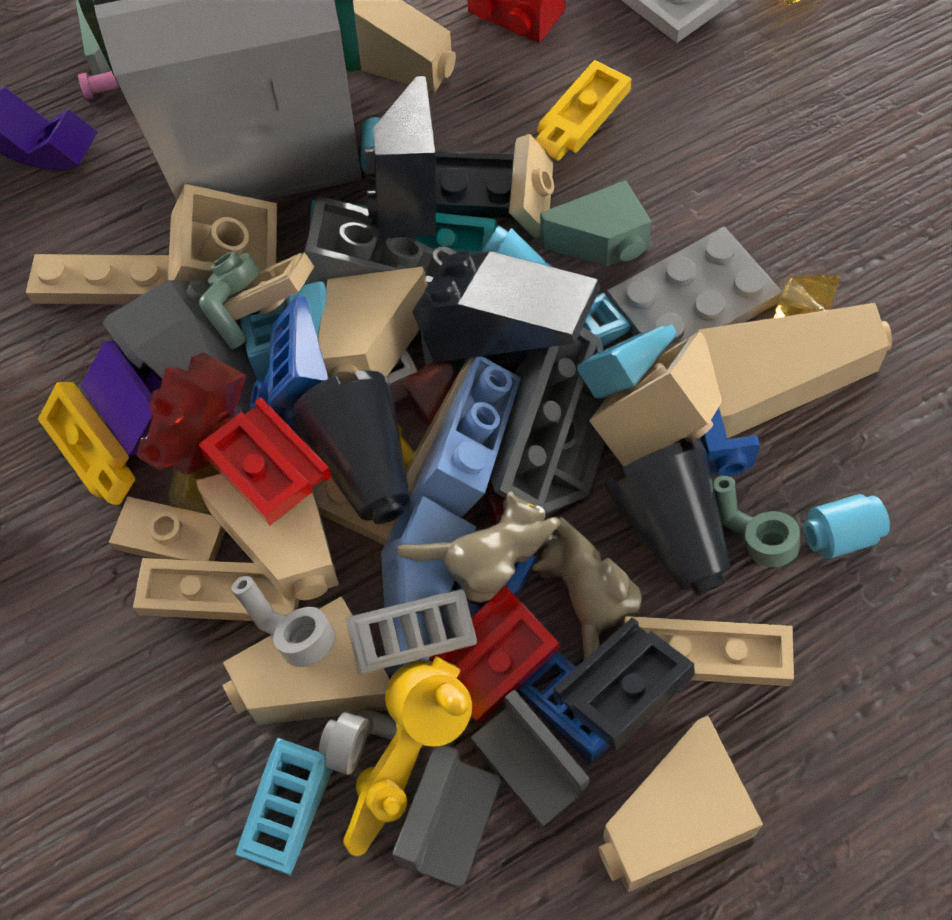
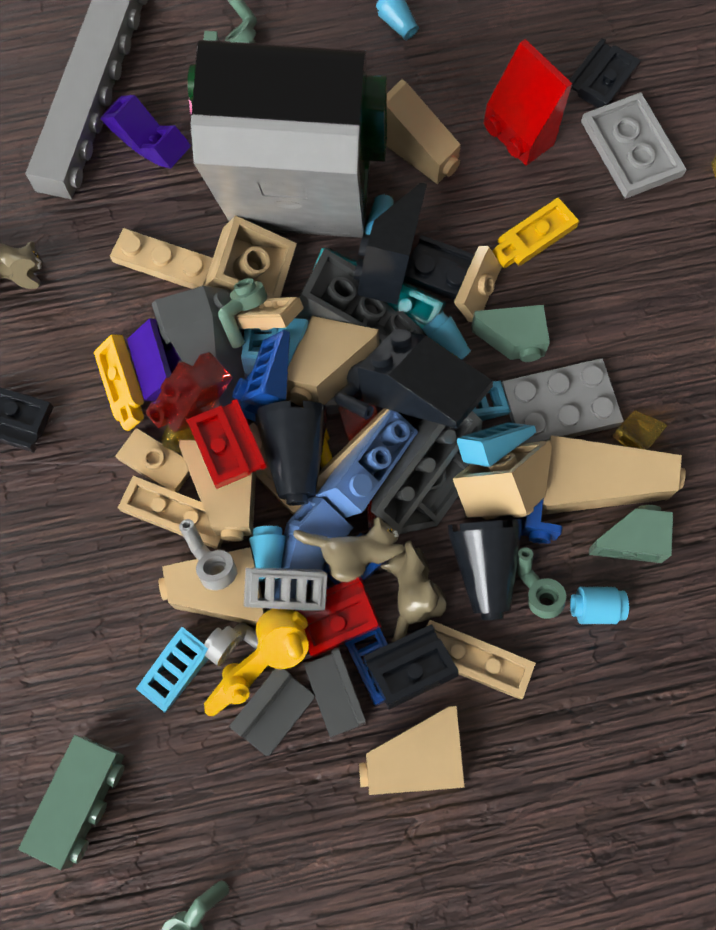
camera: 15 degrees right, 10 degrees up
(365, 588) = (267, 547): none -> medium azure cone
(415, 356) = (346, 396): none -> black plate
(861, 424) = (639, 536): none -> sand green slope

